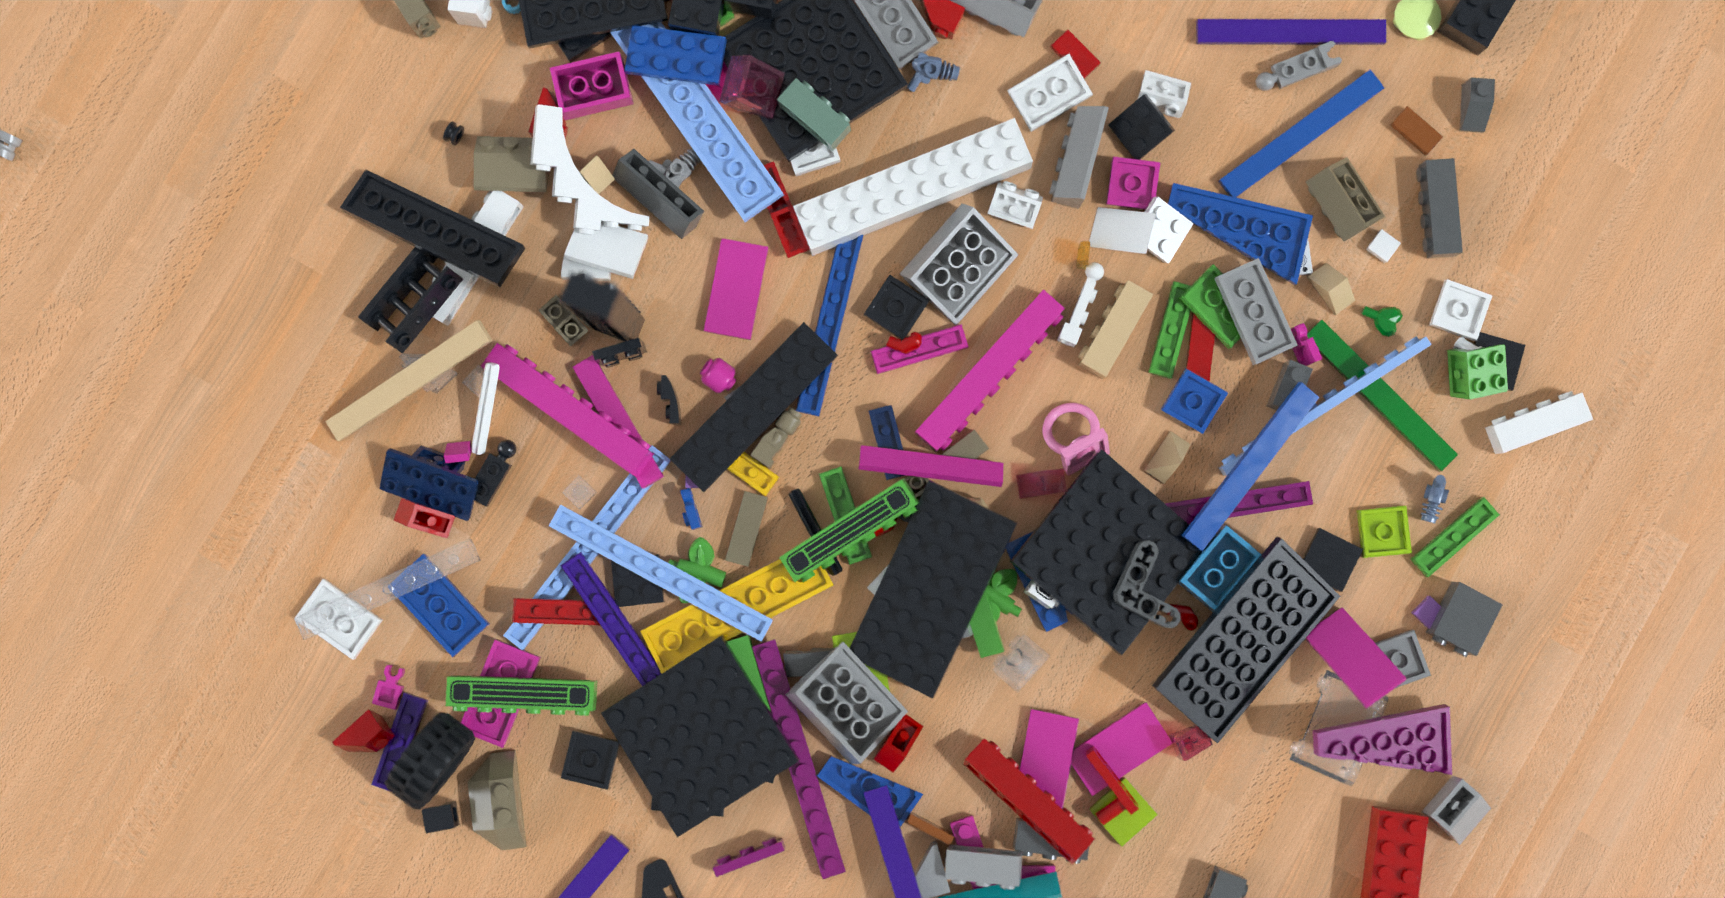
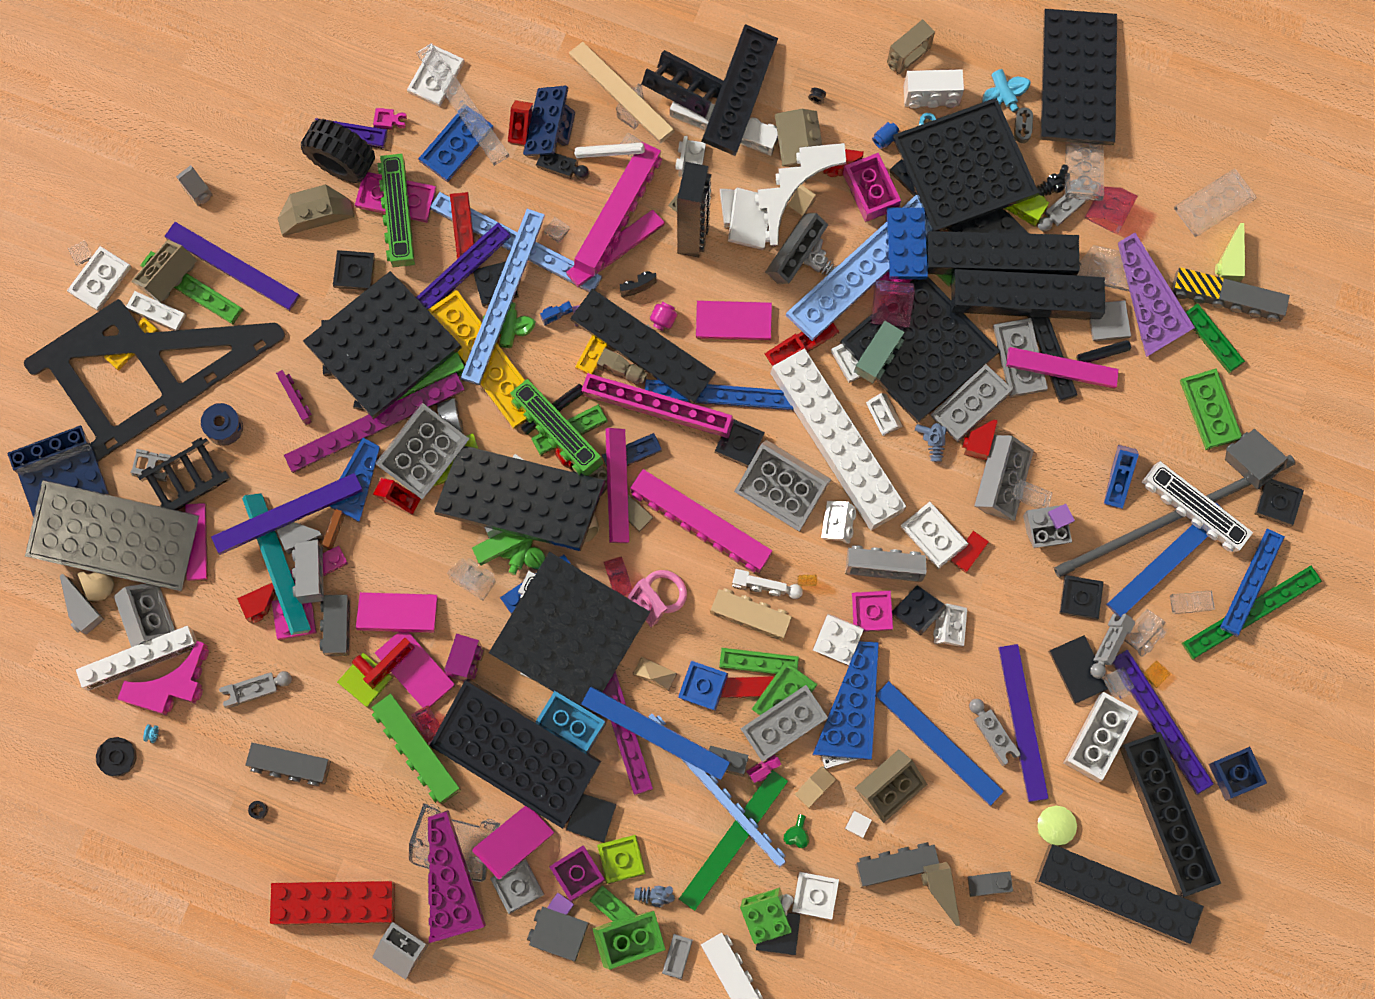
camera: 80 degrees right, 10 degrees down
(366, 734) = (352, 107): red slope -> none
(440, 817) = (297, 170): black panel -> none
(457, 452) = (573, 137): dark pink tile -> none
(512, 307) = (690, 152): none -> white bracket
(522, 56) = (884, 135): none -> blue brick
(613, 354) = (666, 236): black plate -> none
(746, 528) = (547, 357): dark tan tile -> none
(837, 400) = (658, 405): none -> dark pink brick
(887, 126) = (884, 414): none -> white slope
(906, 345) = (710, 453): red arm -> none
(932, 346) = (710, 466): dark pink tile -> none
(1029, 801) = (363, 598): red brick -> none
(1122, 230) = (831, 606): white sticker -> none
(1123, 688) = (464, 658): none -> magenta brick
(1135, 587) = (543, 652): dark grey beam -> none
(1187, 616) = (531, 704): red arm -> none
(1219, 760) = (416, 749): none -> bright green brick
(1399, 586) = (577, 873): none -> magenta brick
(1416, 130) = (960, 838): dark orange tile -> none
(1476, 160) = (940, 884): none -> dark tan slope
(1485, 537) = (628, 939): none -> bright green slope
(1506, 483) = (677, 956): none -> light grey tile

